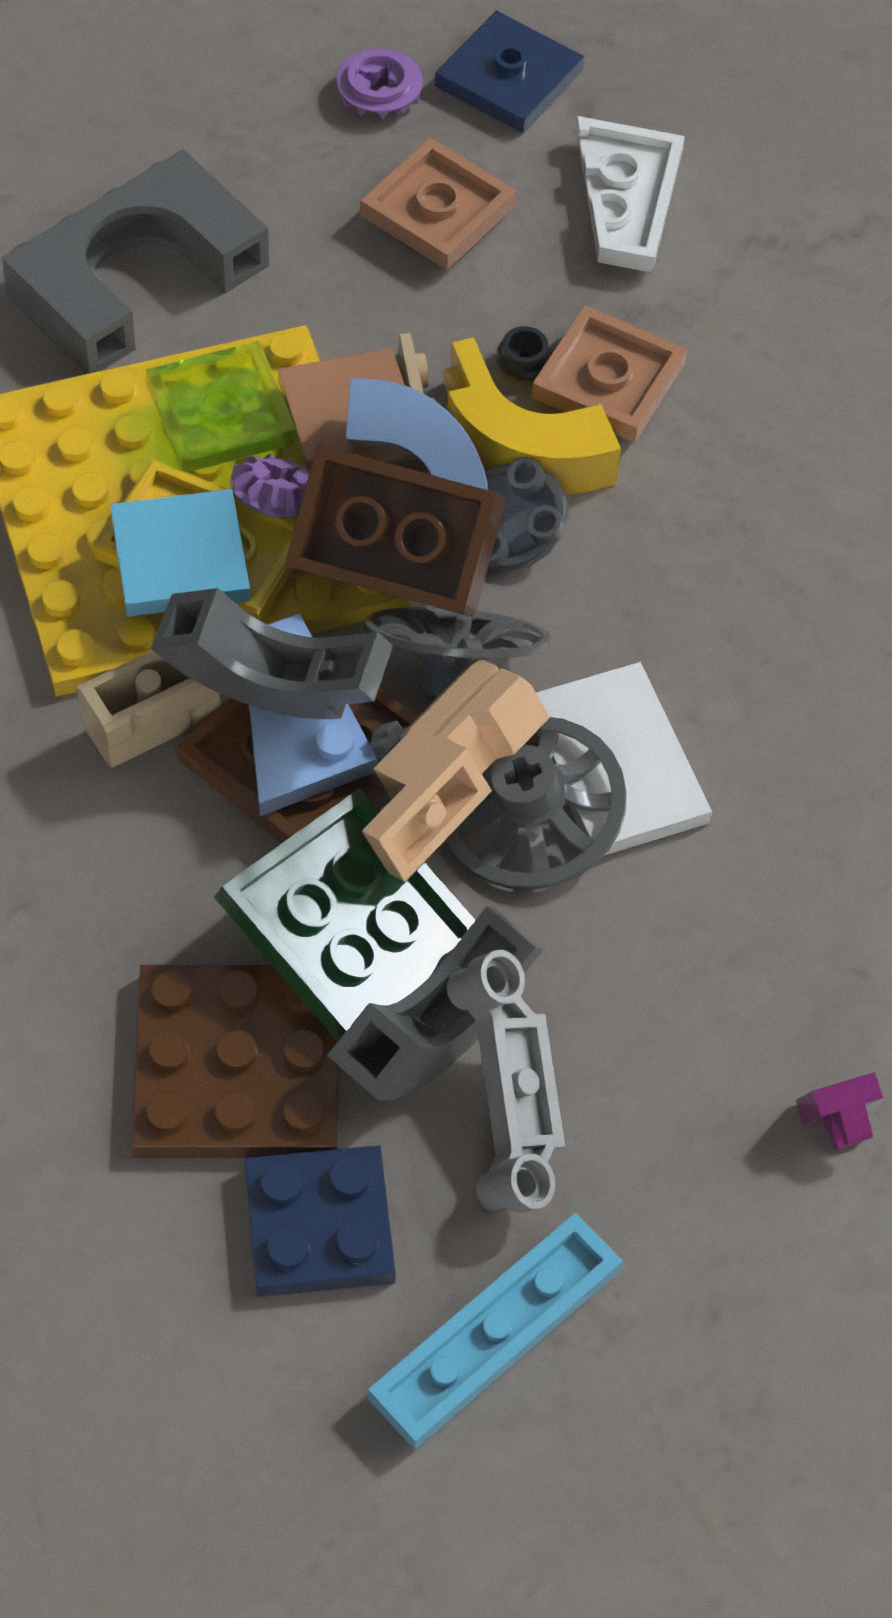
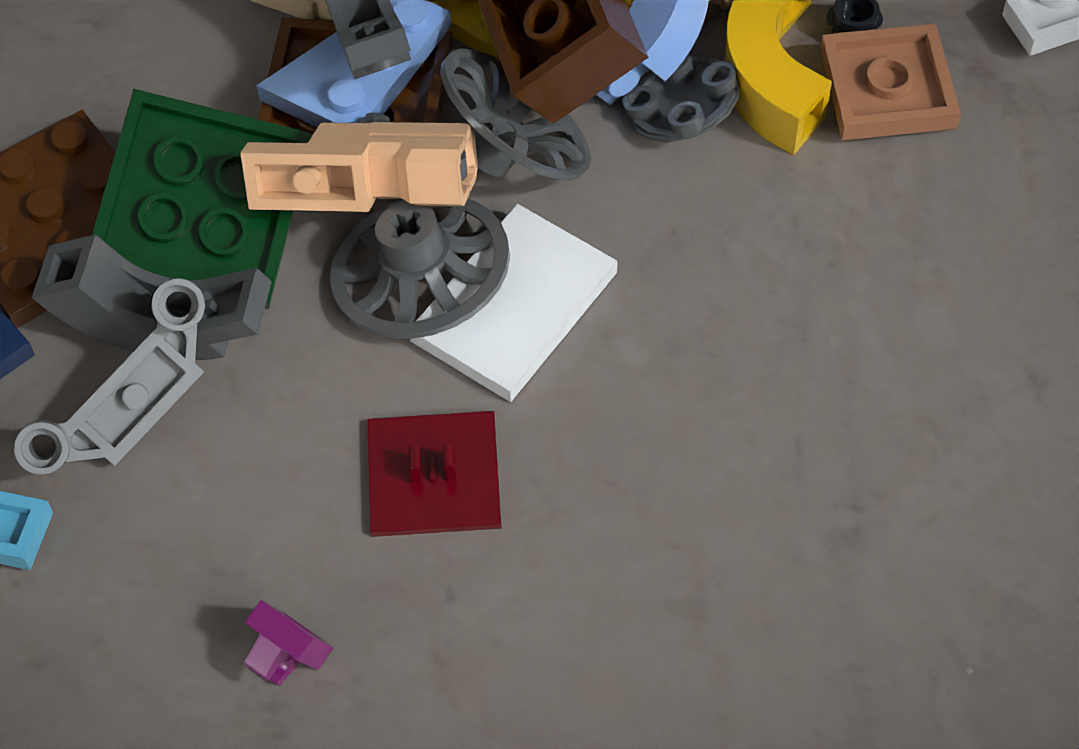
camera: 60 degrees right, 0 degrees up
(738, 917) = (433, 474): none -> dark red piece

